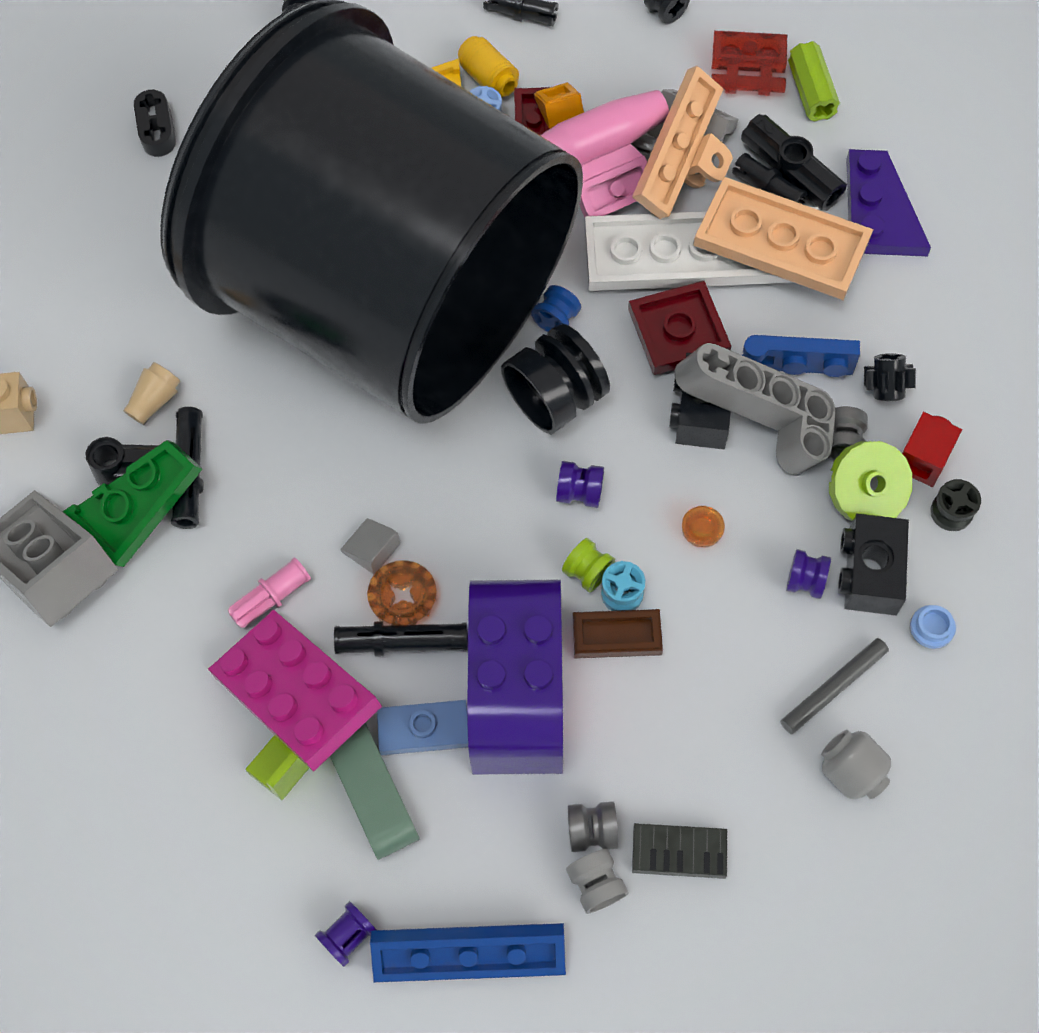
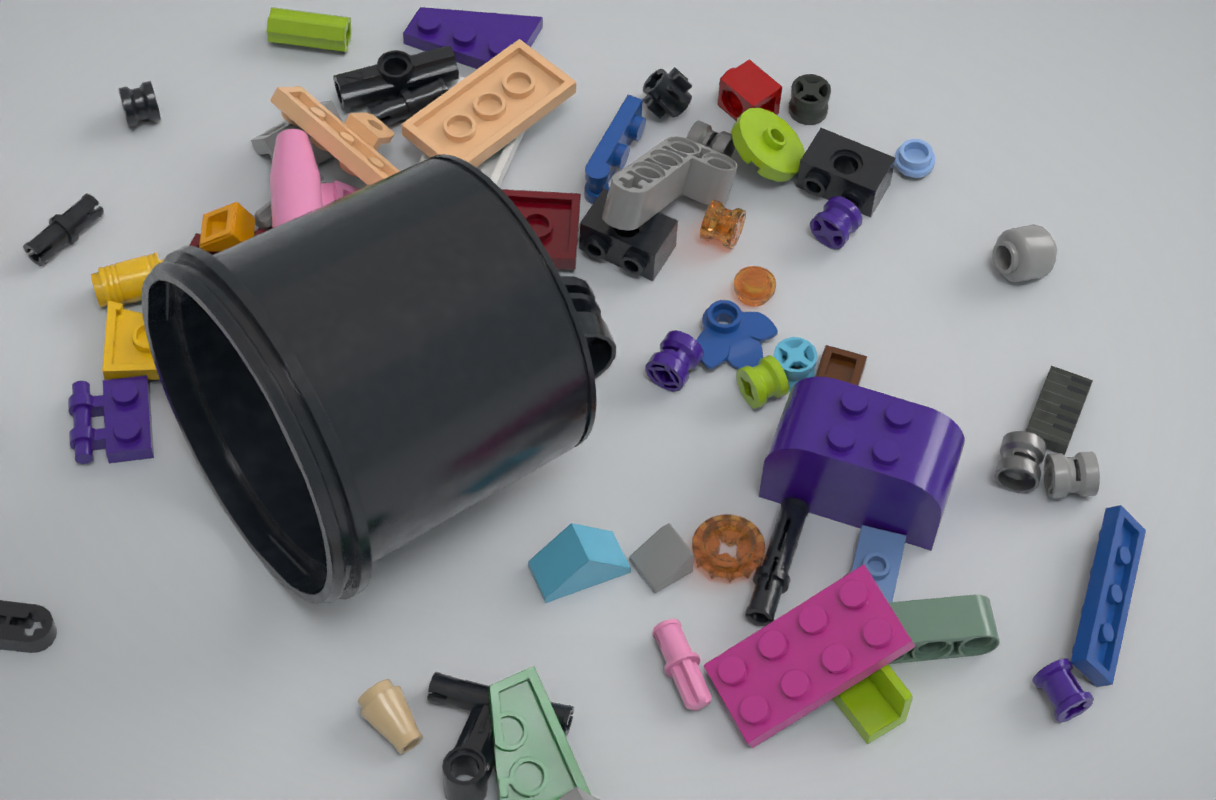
camera: 75 degrees left, 10 degrees down
(346, 482) = (576, 561): none -> medium azure slope
(632, 533) = (736, 341): none -> blue plate
(749, 52) = (246, 62): clear red plate -> none
(756, 475) = (722, 224): none -> clear orange wheel
(834, 686) = (943, 247): dark grey bar -> none

